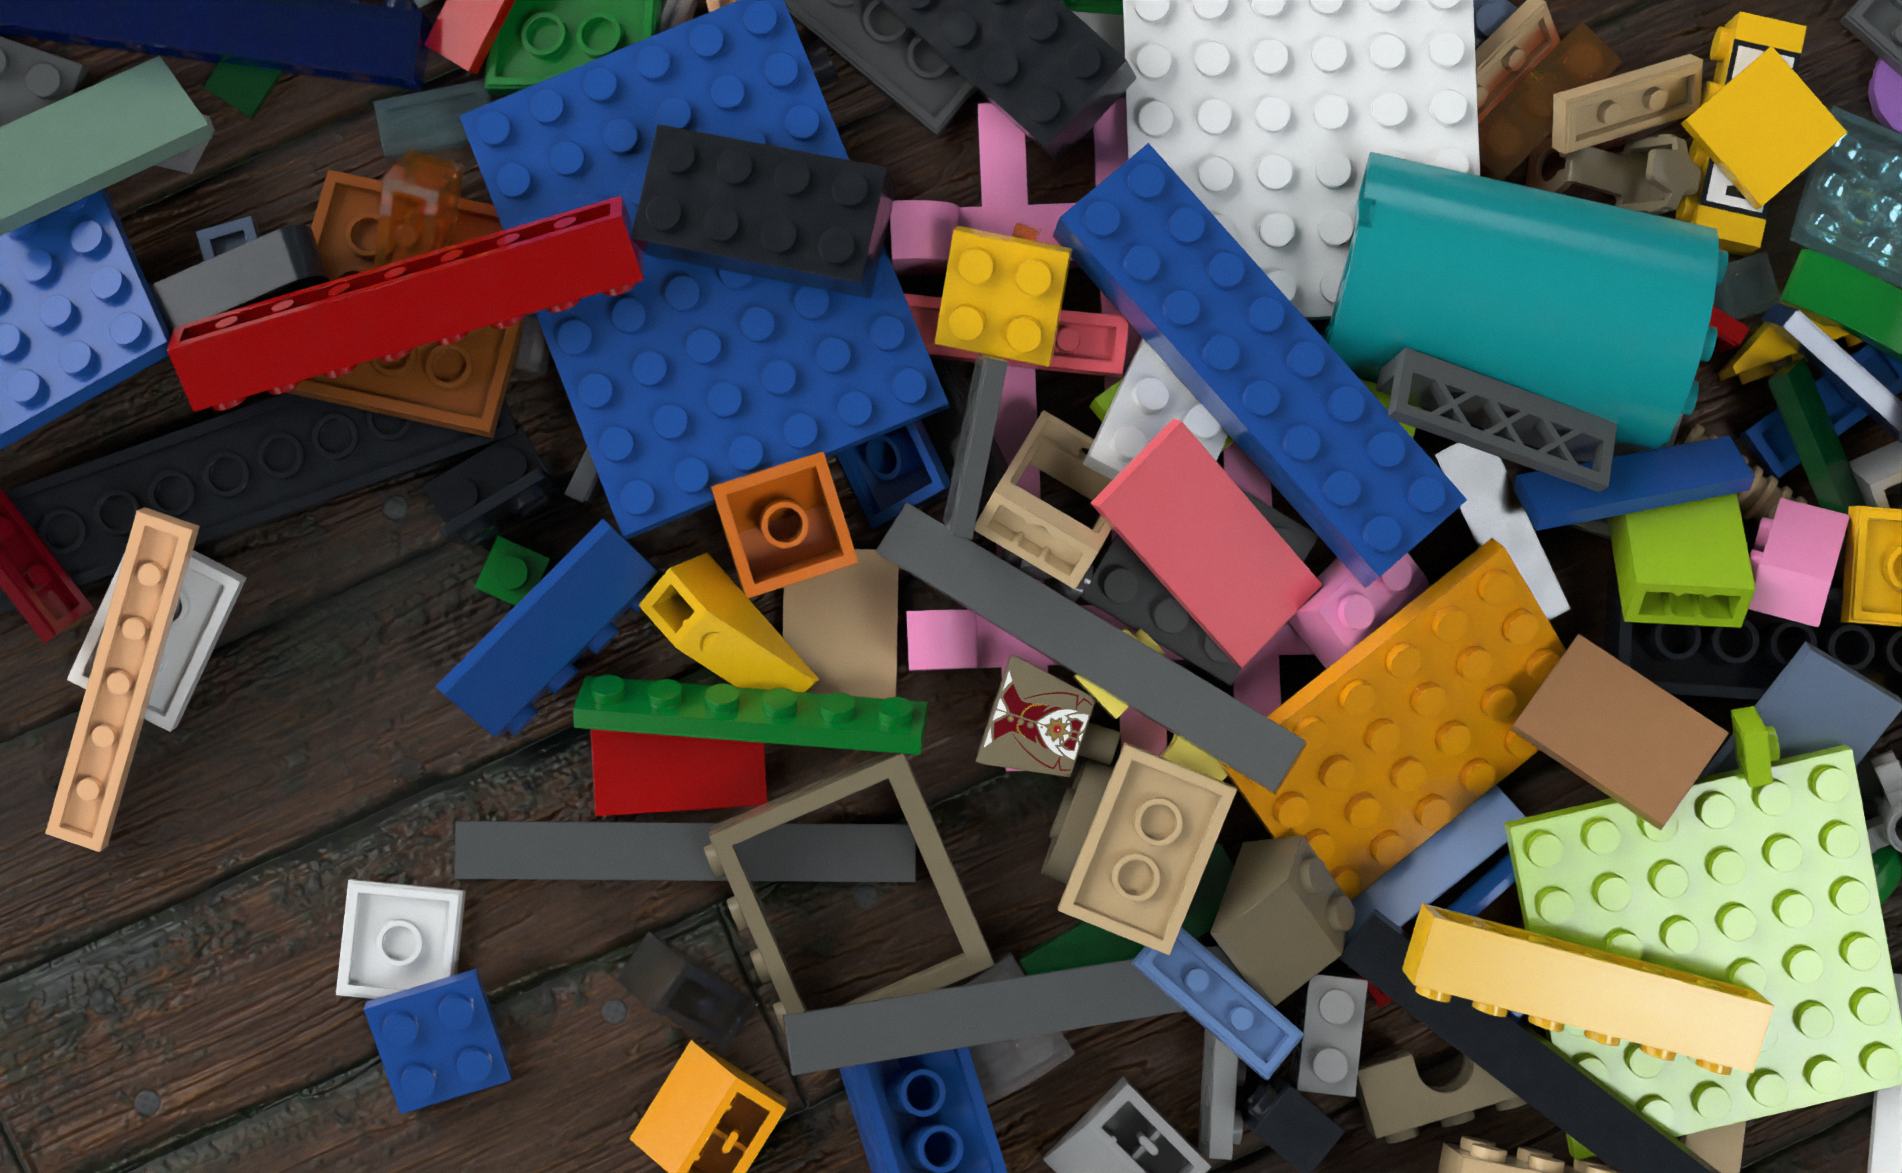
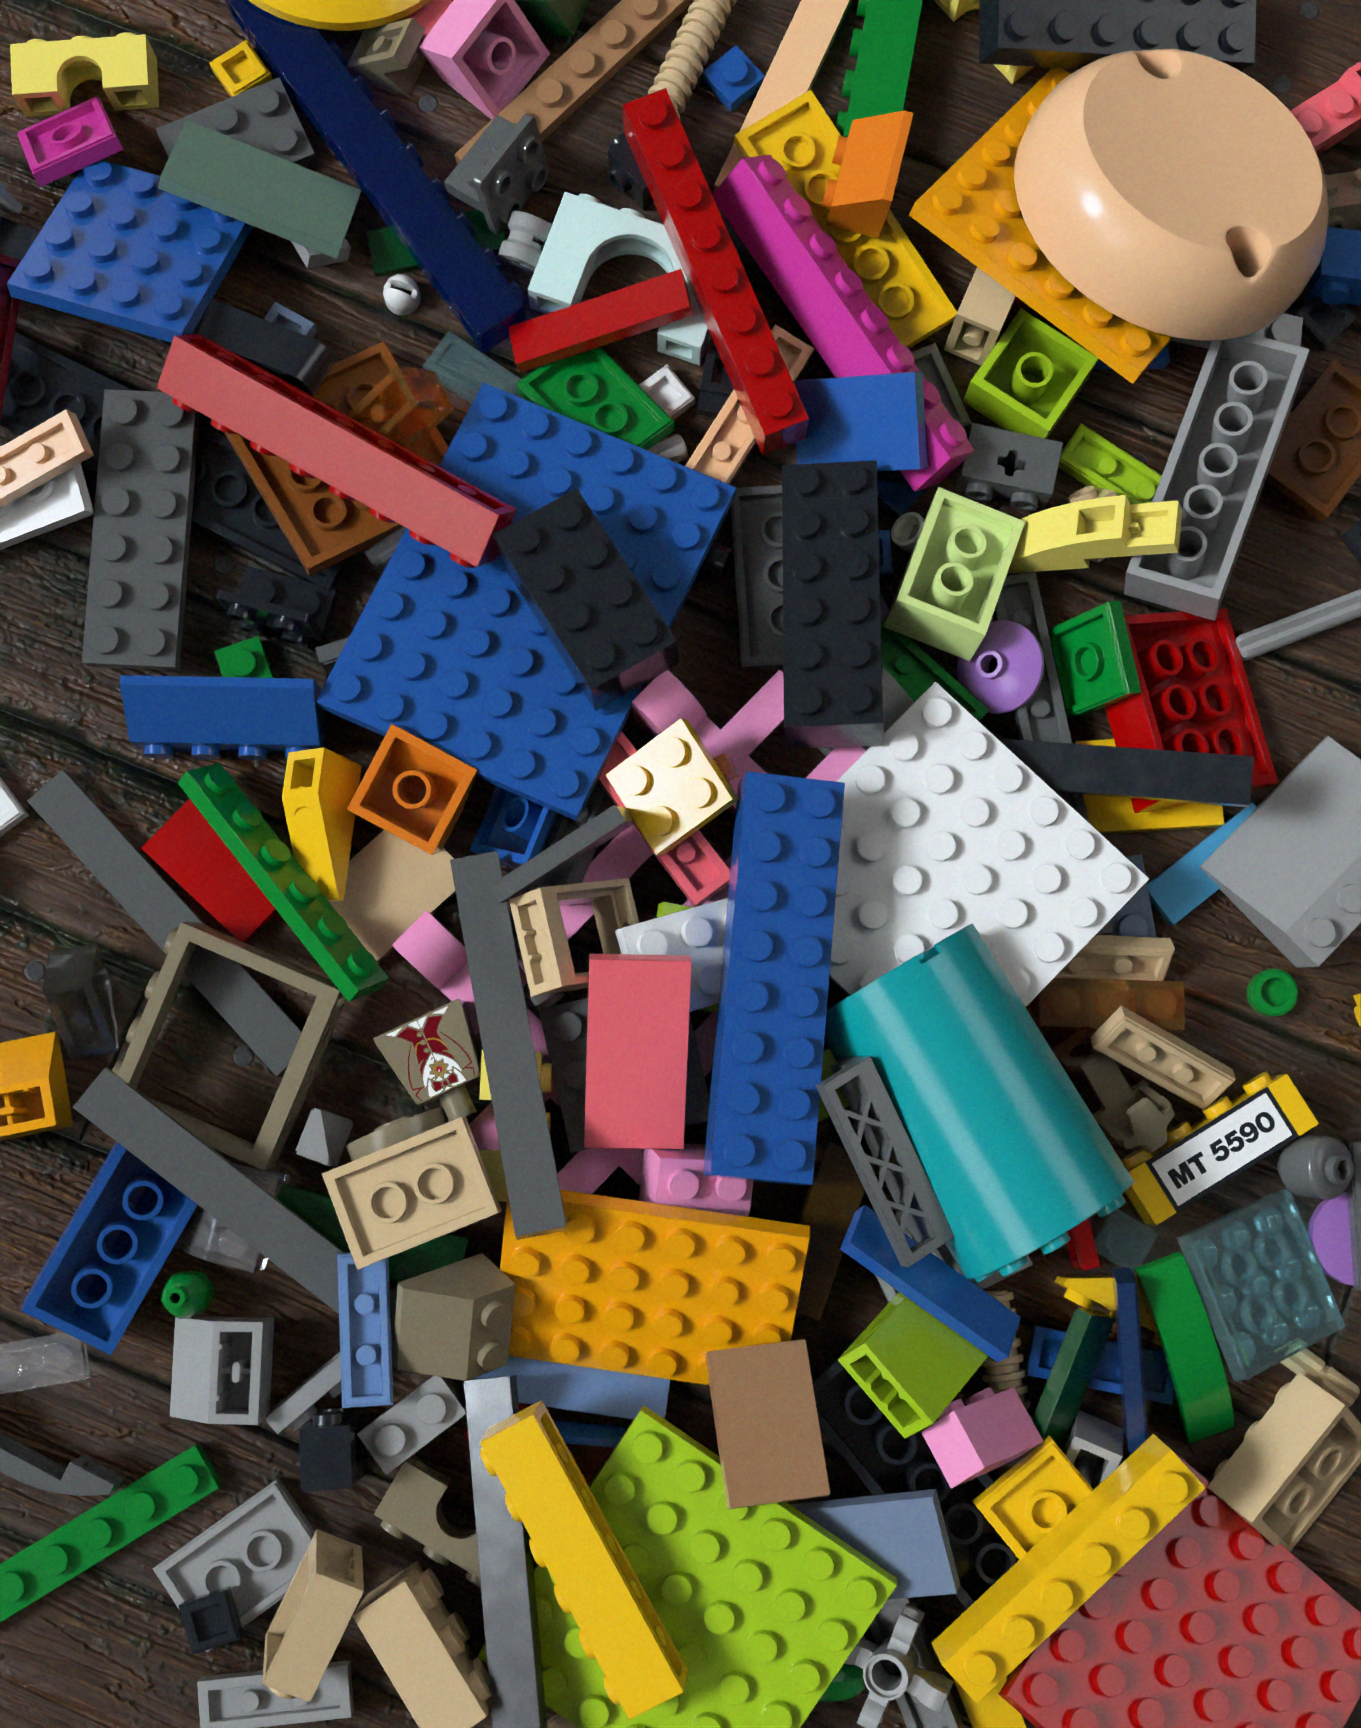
camera: 55 degrees right, 5 degrees down
(299, 121) = (399, 301): none -> white hinge
(302, 550) = (140, 532): none -> dark grey plate
(1009, 888) = (324, 1137): none -> light grey slope
(1034, 1118) = (187, 1294): none -> green plant
(1754, 746) = (839, 1520): lime plate -> none
(1764, 128) = (1230, 1156): yellow tile -> none
(1840, 63) = (1315, 1166): none -> dark grey head

